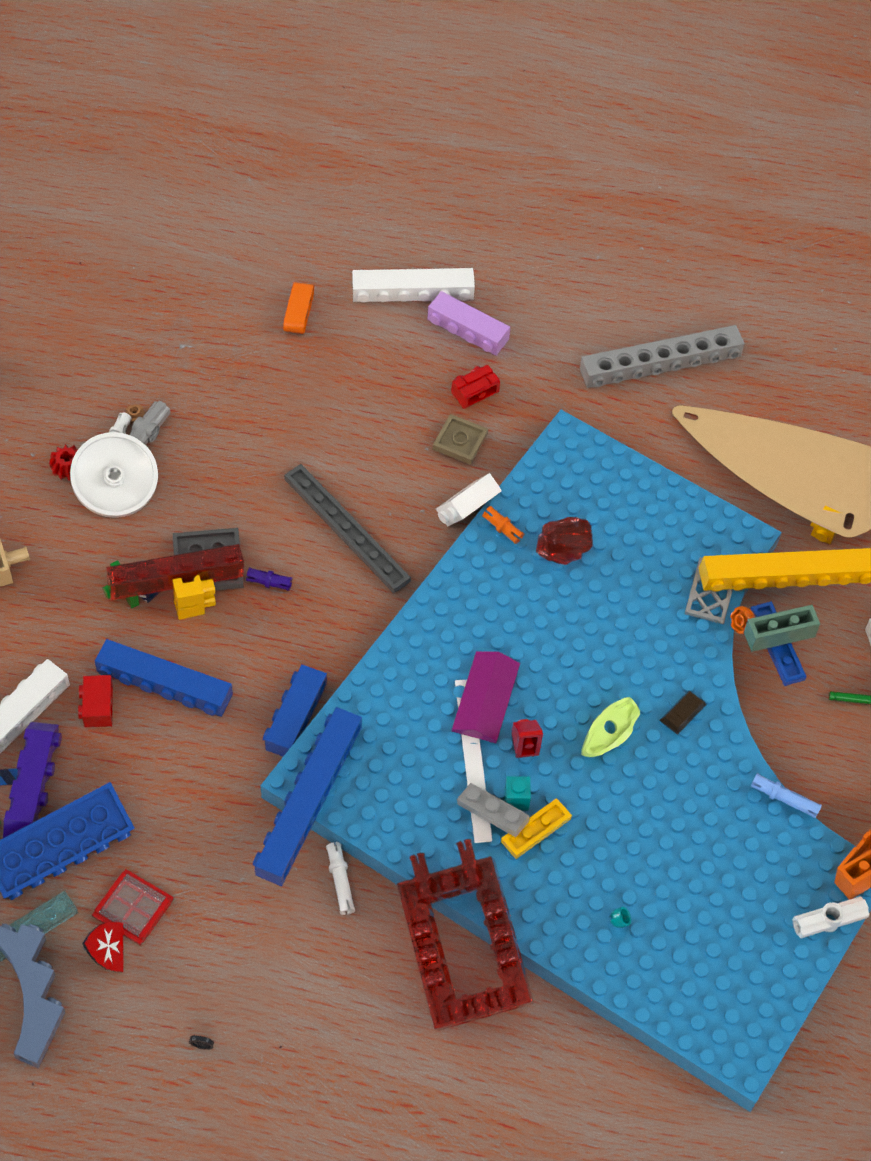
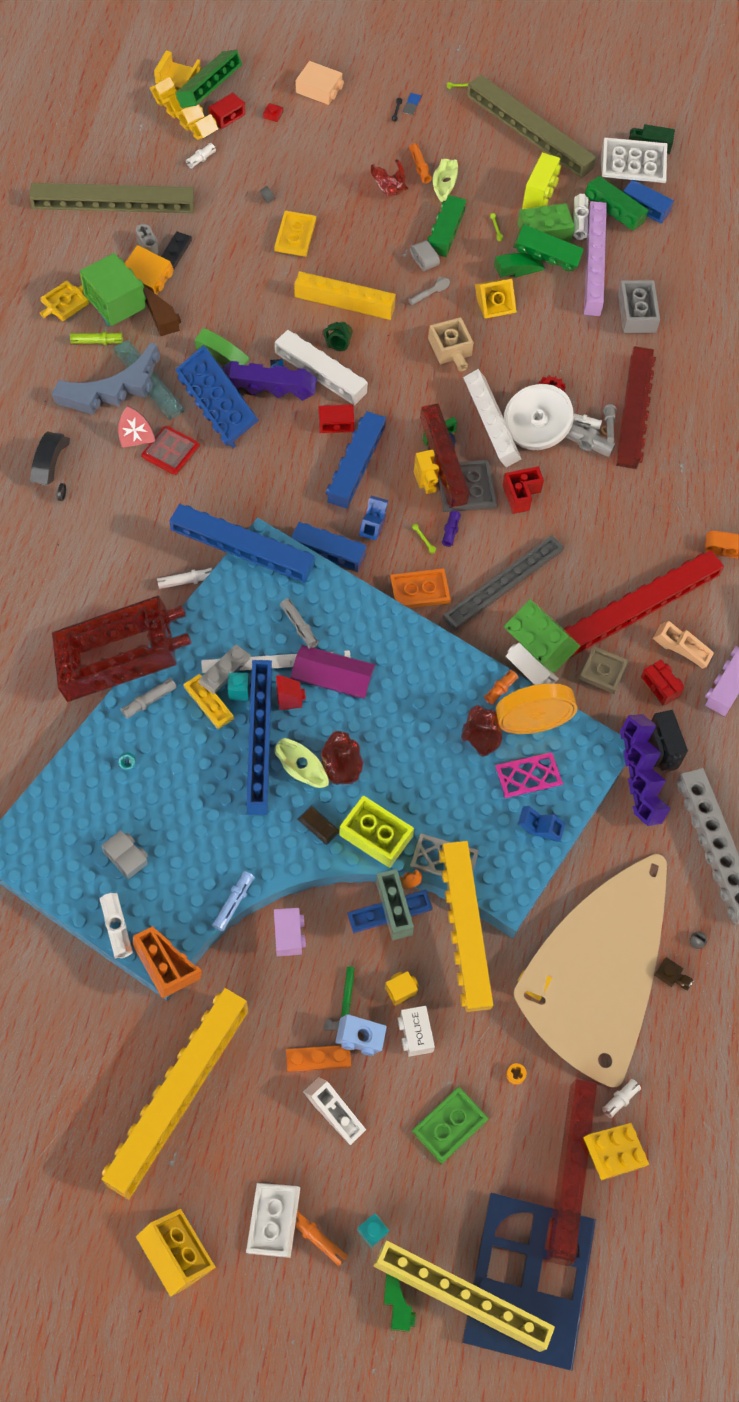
camera: 90 degrees right, 5 degrees up
(99, 378) = (635, 405): none -> clear red brick
(110, 524) = (492, 418): none -> white brick
(117, 404) = (609, 412): none -> light grey pin
(146, 1058) = (46, 457): none -> black arch
(220, 503) = (520, 486): none -> red brick
(258, 660) = (374, 518): none -> blue brick
(296, 602) = (432, 549): none -> lime hinge
(355, 613) = (421, 588): none -> orange plate
(375, 397) = (645, 600): none -> red brick
(426, 364) = (683, 643): none -> light nougat slope
(432, 726) = (303, 629): none -> light grey pin
(434, 483) = (541, 636): none -> bright green container
(541, 905) = (140, 703): none -> light grey pin
(549, 478) = (536, 708): none -> light orange brick
(552, 386) = (668, 740): none -> black brick
(586, 766) = (259, 738): none -> blue brick
(595, 519) = (522, 788): none -> dark pink window
(601, 405) = (643, 780): none -> dark purple brick
(608, 680) = (342, 759): none -> clear red hair
(666, 496) = (541, 825): none -> blue slope
(694, 647) = (376, 831): none -> neon yellow brick
(743, 912) = (125, 854): none -> light grey brick
(765, 387) = (696, 942): none -> dark grey hinge
(800, 411) = (671, 973): none -> dark brown plate
(816, 738) = (288, 932): none -> lavender brick
(848, 645) = (401, 987): none -> yellow brick

